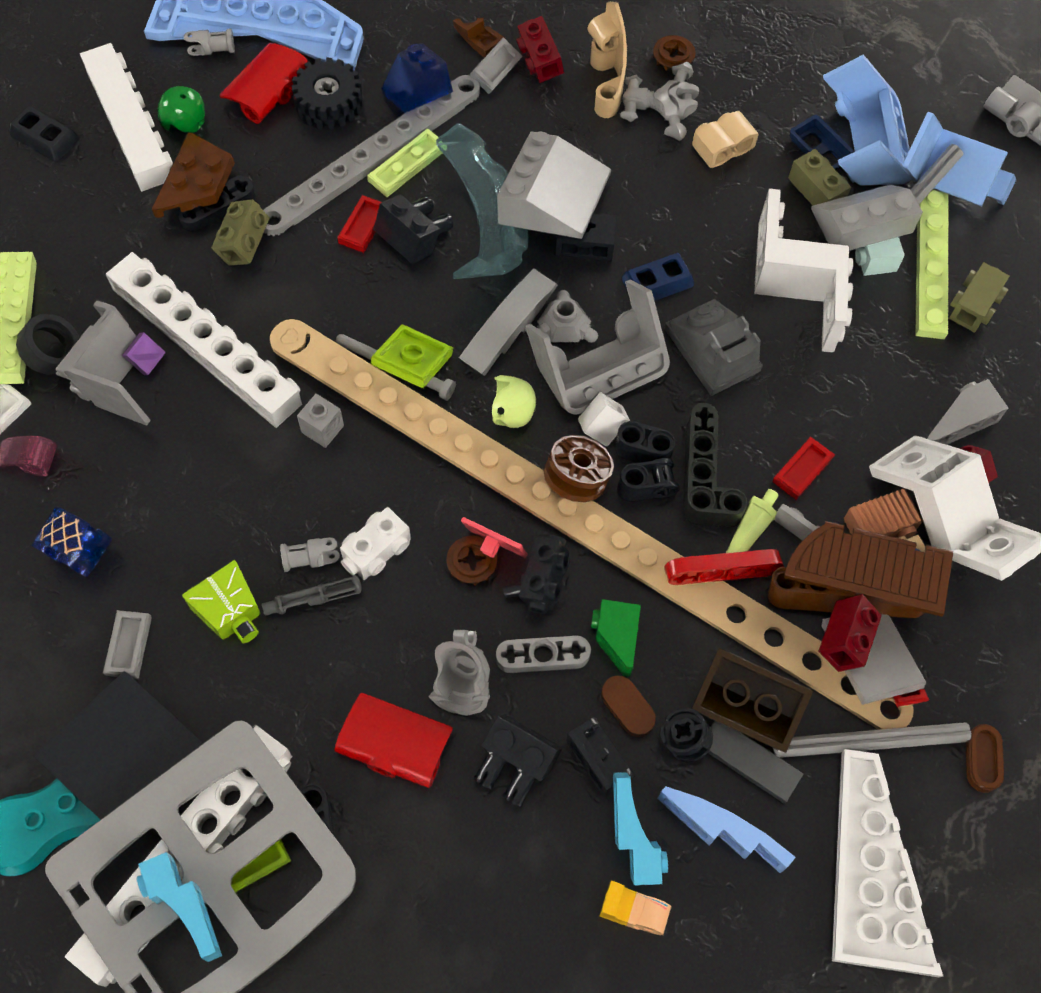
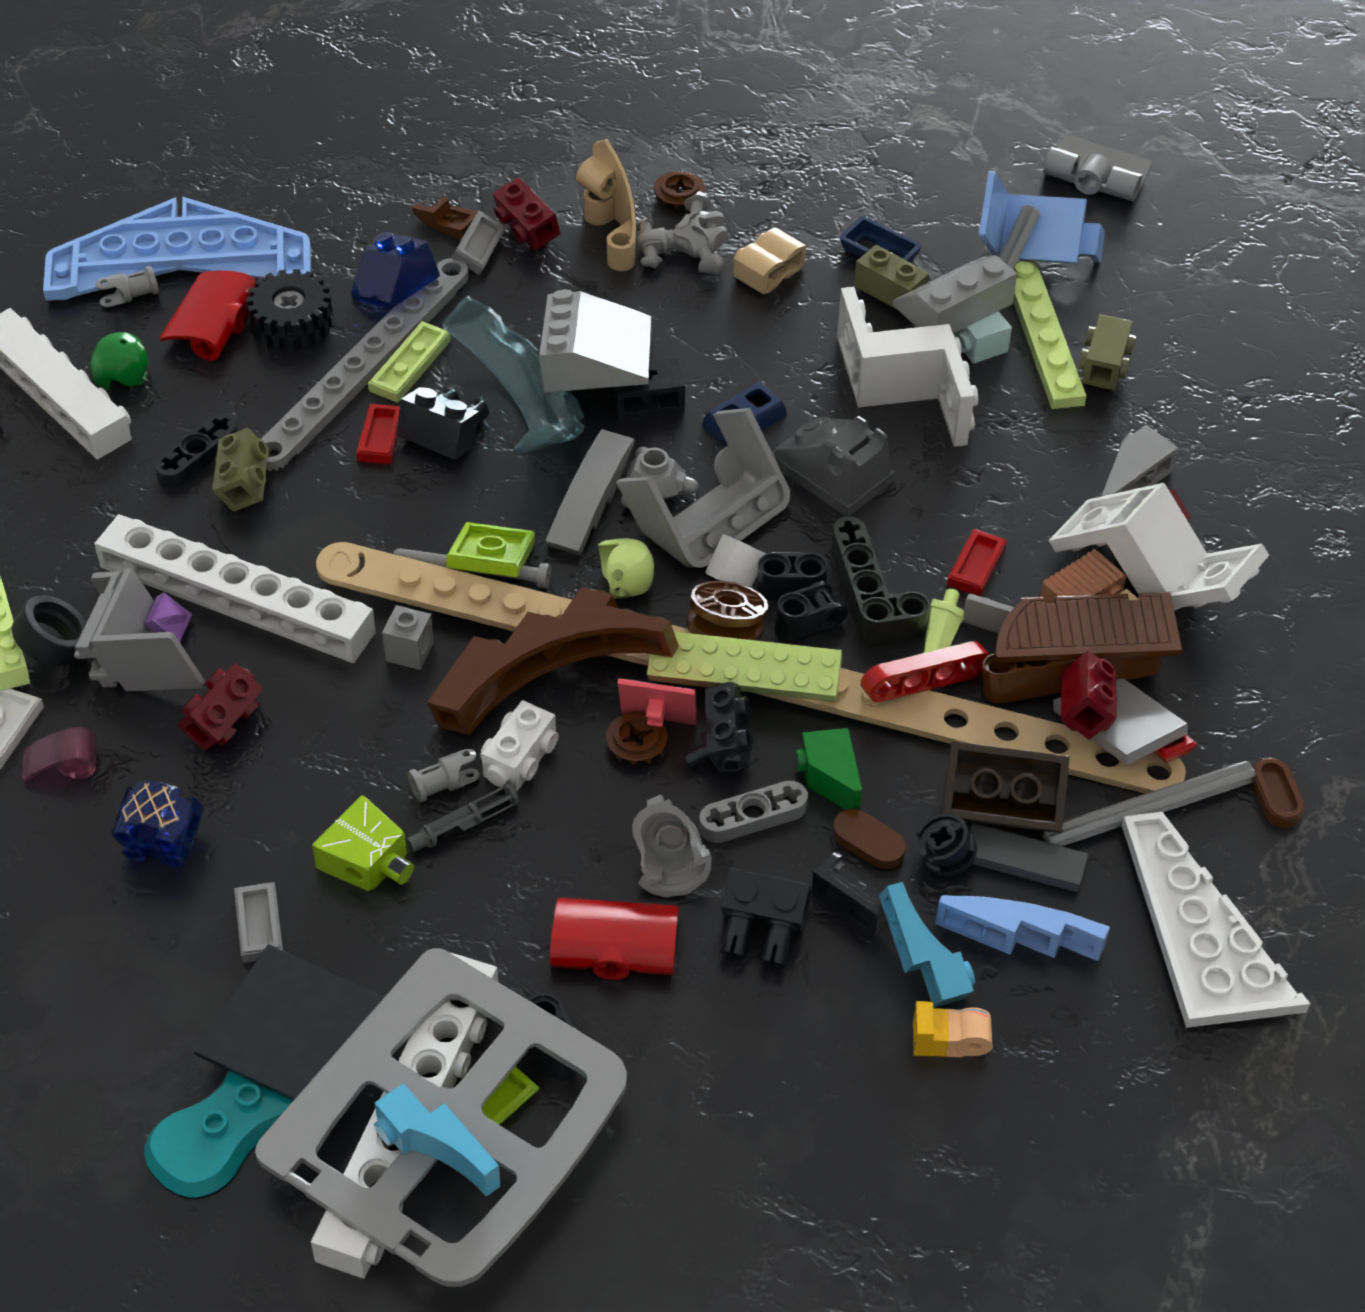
camera: 15 degrees left, 15 degrees down
(165, 438) = (228, 697): none -> dark red brick
(194, 177) = (162, 425): reddish brown wing -> none
(417, 459) = (539, 644): none -> reddish brown arch
(576, 522) = (752, 665): none -> yellowish green piece
(874, 123) = (929, 208): light blue windscreen -> none

